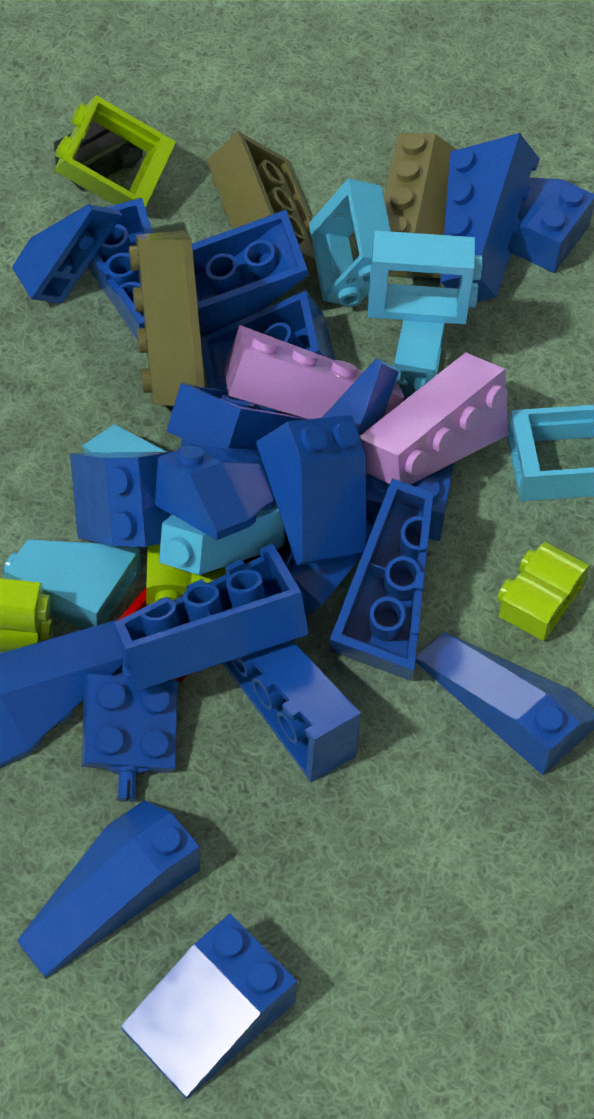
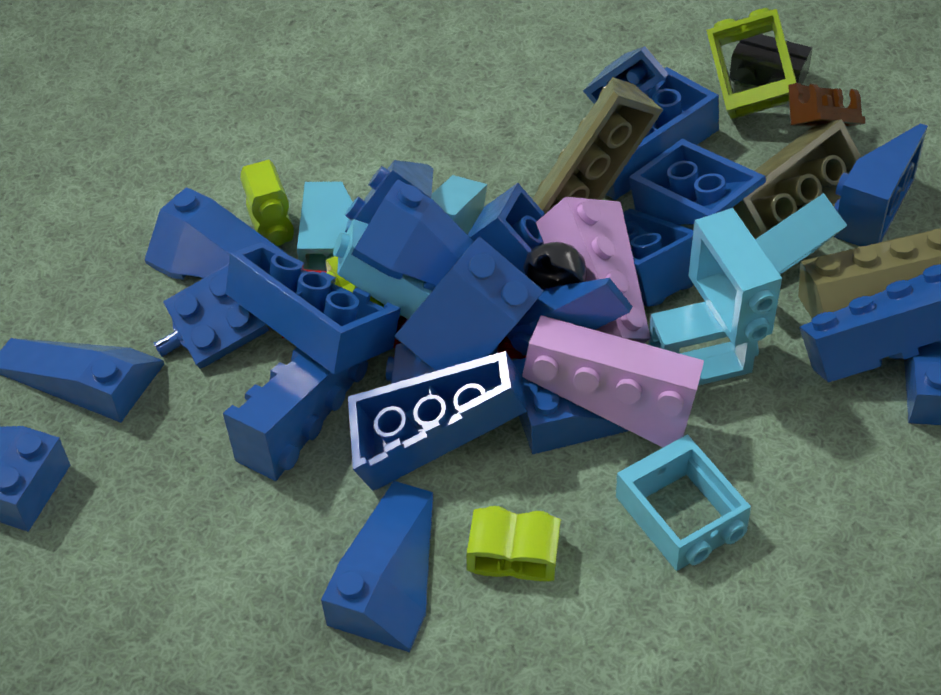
camera: 70 degrees right, 5 degrees down
(202, 142) = (820, 105): none -> reddish brown hinge
(312, 394) = (555, 265): none -> black hair
(323, 147) = (878, 187): none -> blue slope

